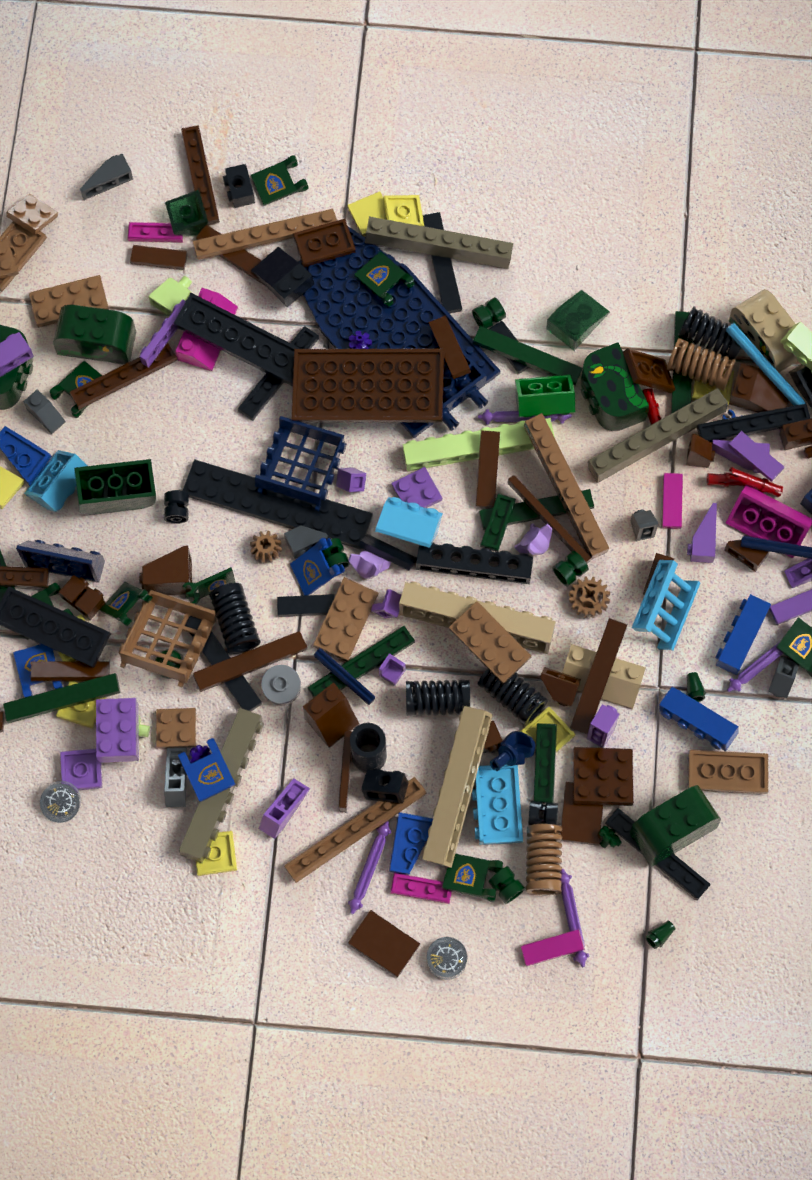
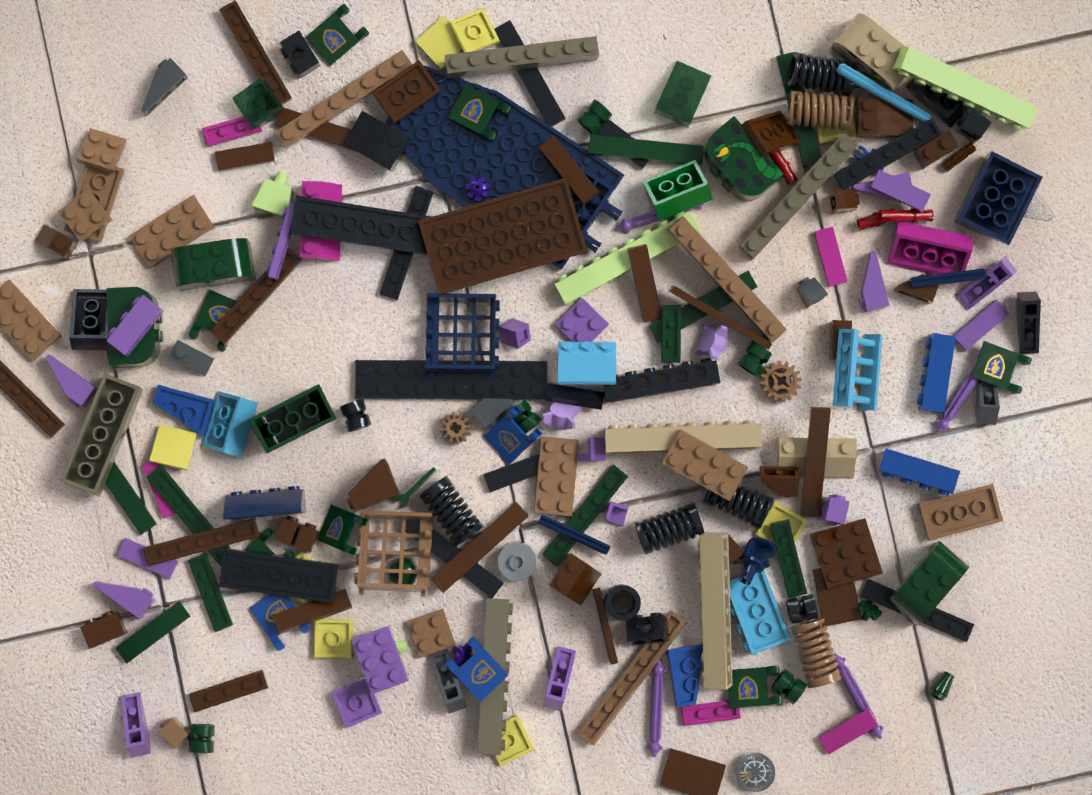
camera: 25 degrees left, 15 degrees up
(60, 801) = (349, 740): clear piece -> none
(61, 698) = (314, 640): dark green tile -> none
(695, 687) = (906, 440): dark green cone -> none

